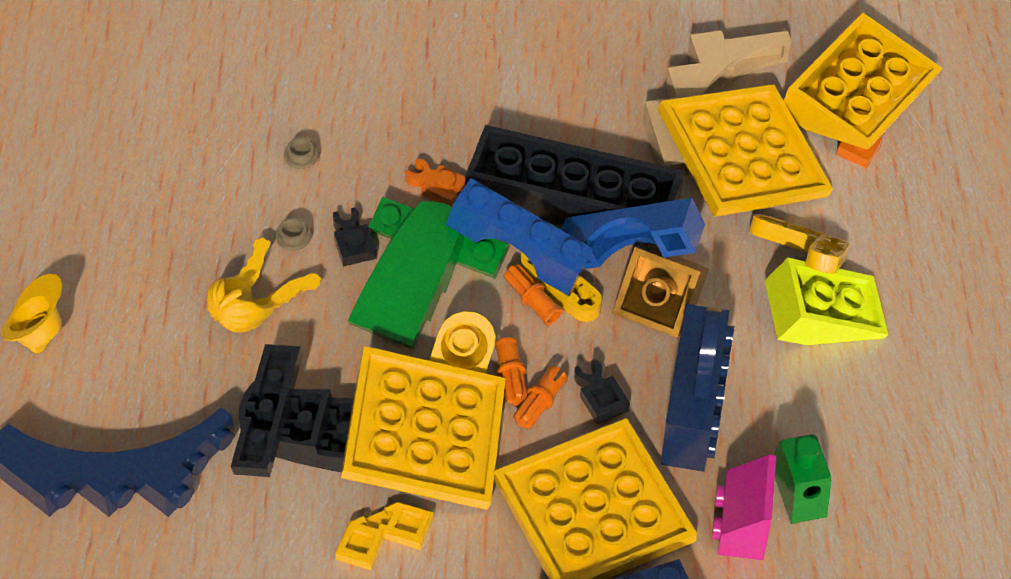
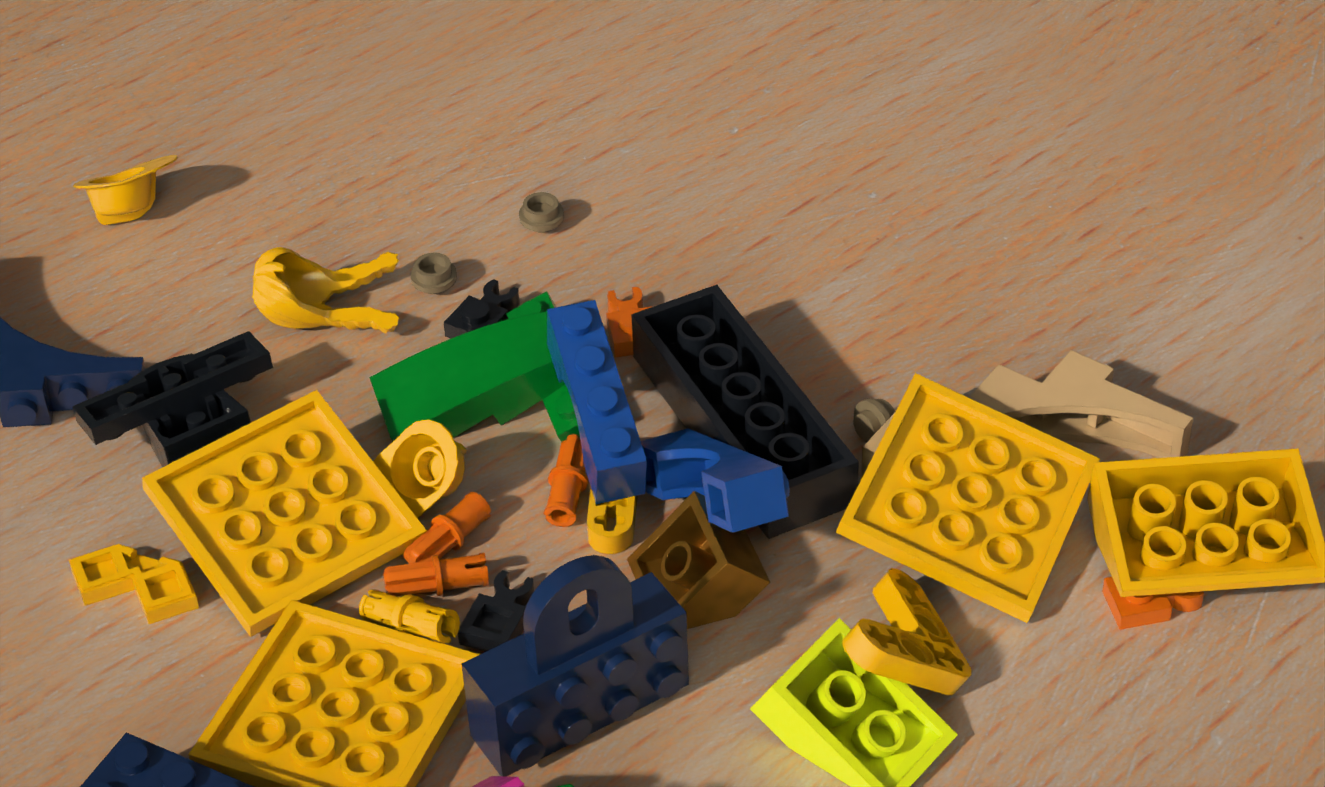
camera: 50 degrees right, 10 degrees down
(562, 428) = (409, 615): none -> yellow pin
(638, 144) = (870, 416): none -> dark tan plate

